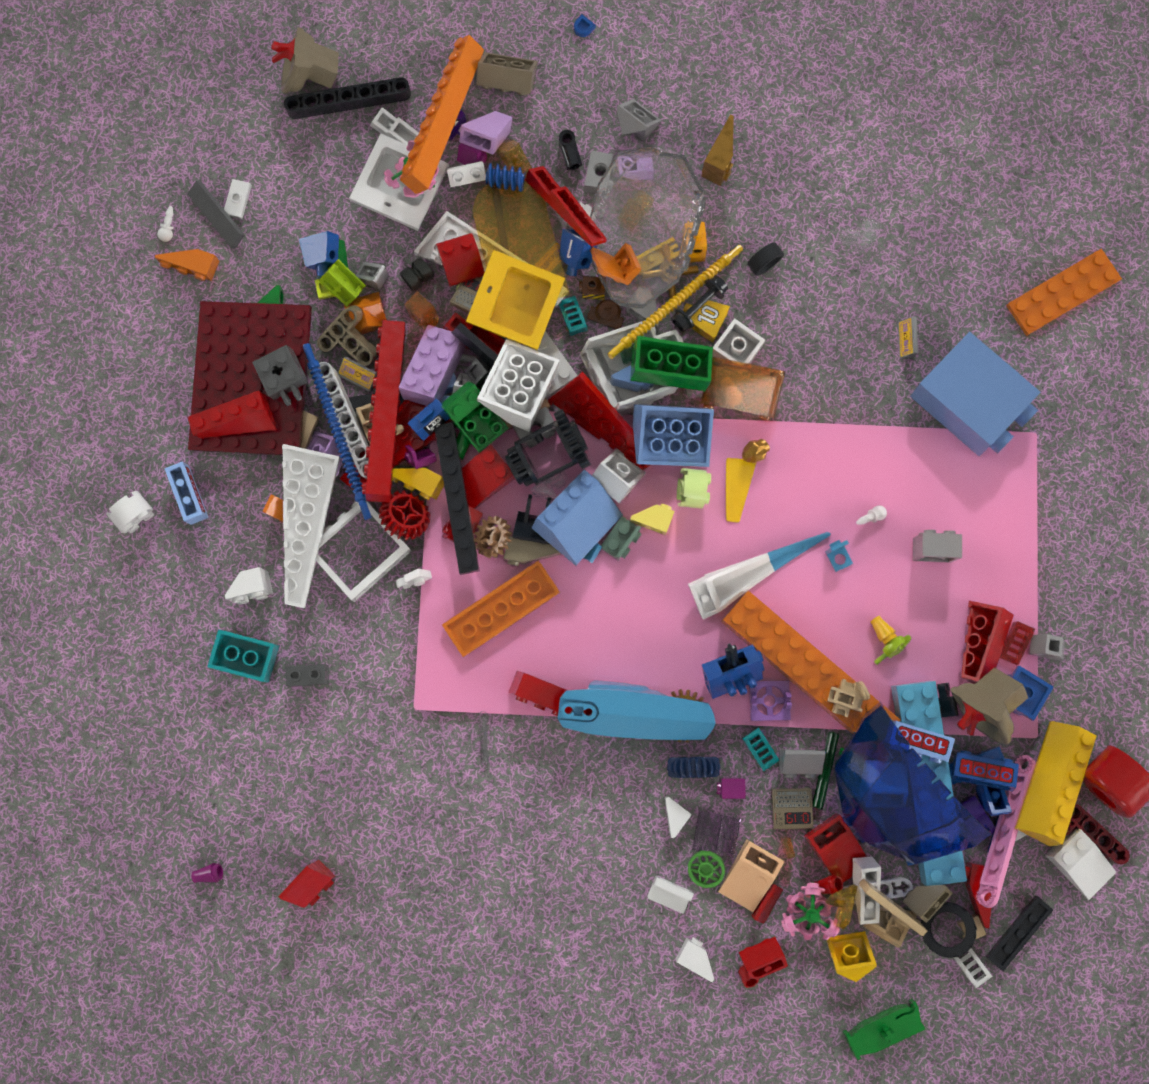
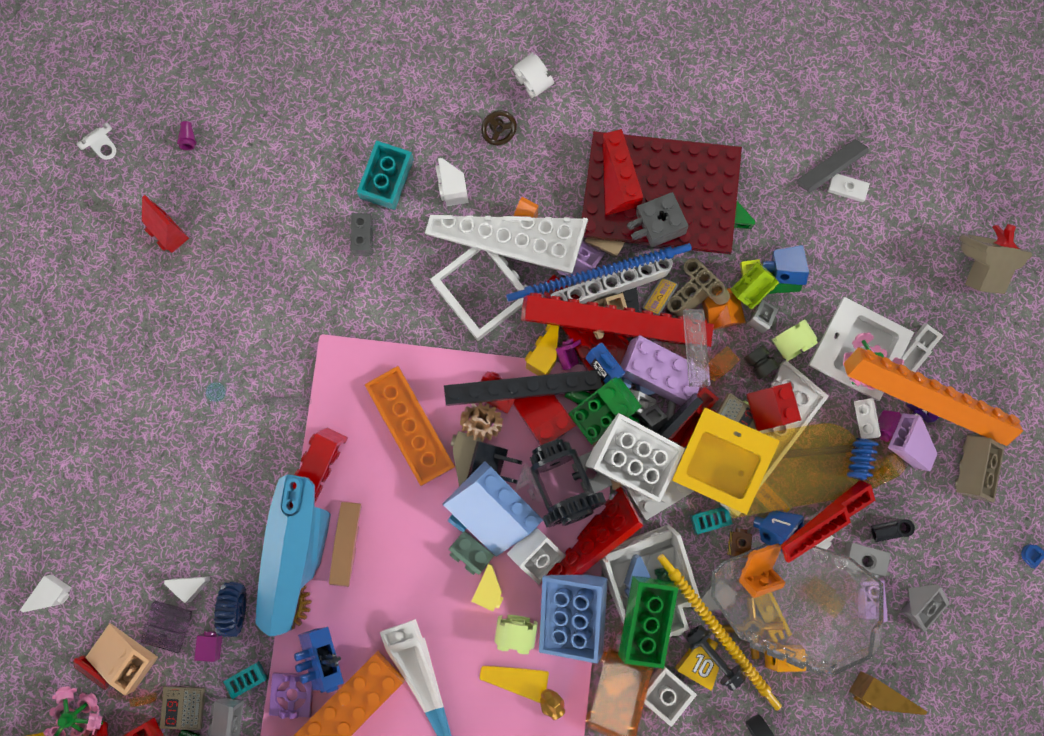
camera: 90 degrees right, 0 degrees up
(165, 233) = (814, 117): white bar -> none
(186, 493) = (549, 127): light blue brick -> none
(186, 545) = (494, 120): none -> dark brown piece
(194, 262) = (783, 143): orange slope -> none
(214, 970) = (96, 139): none -> white tile
(339, 94) = (950, 310): black beam -> none
(394, 243) = (794, 339): none -> yellowish green brick
(407, 333) = (696, 348): none -> clear plate
(415, 512) = (508, 350): red gear -> none
(415, 577) = (446, 343): white plate -> none
(479, 811) = (215, 392): none -> clear light blue plate
(607, 314) = (710, 555): reddish brown piece -> none
(621, 661) = (344, 544): none -> medium nougat slope
(670, 894) = (113, 575): white panel -> none
(706, 869) = (132, 613): bright green wheel -> none
(761, 961) = (35, 661): red hinge -> none

